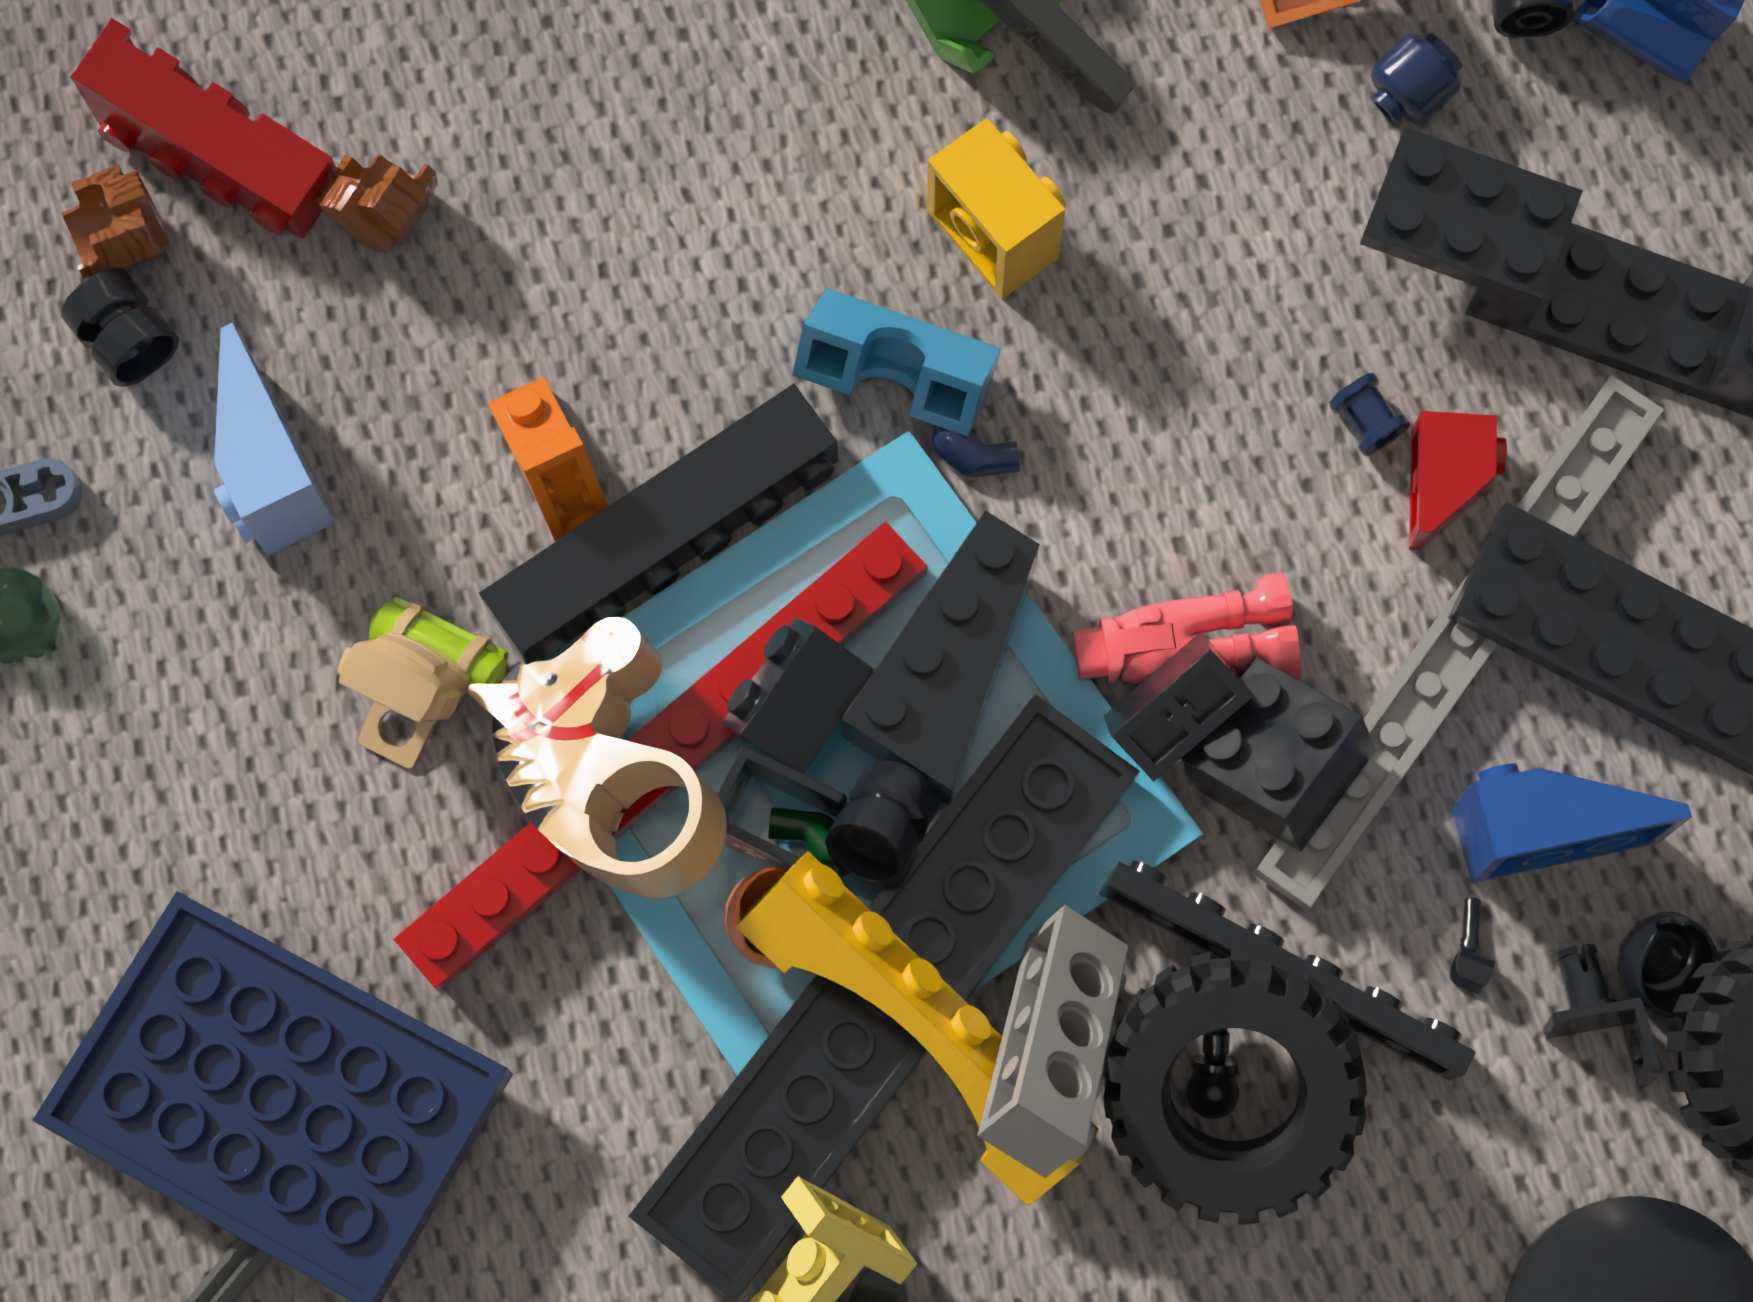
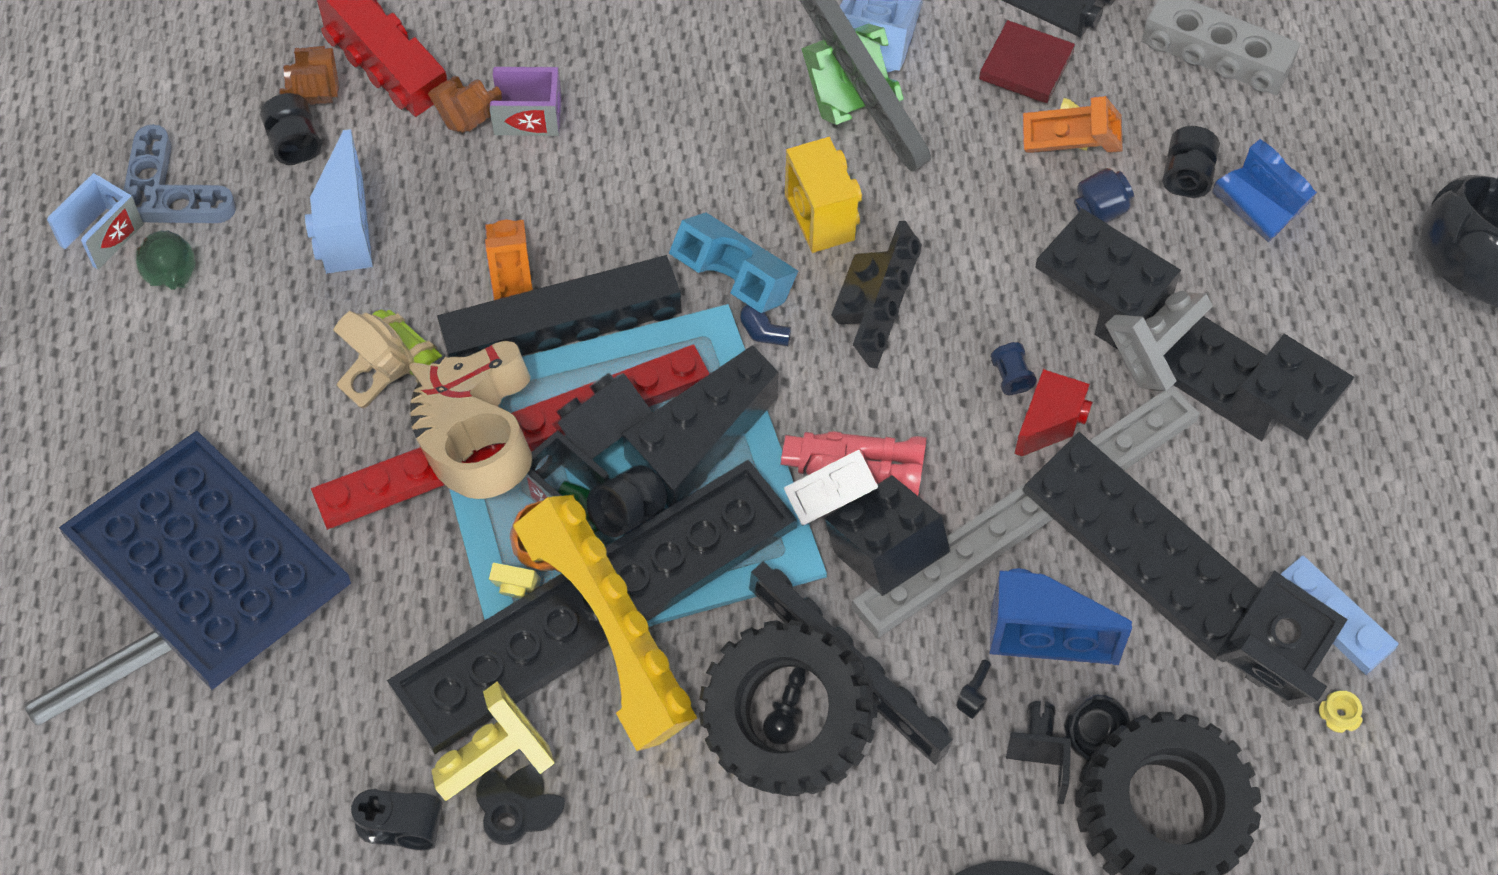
camera: 15 degrees right, 15 degrees down
(467, 140) = (528, 101): none -> piece
(757, 997) = (514, 580): none -> light yellow plate
(1055, 1043) = (683, 648): light grey brick -> none
(1120, 343) = (875, 292): none -> black bracket
(1564, 322) = (1146, 341): none -> light grey bracket

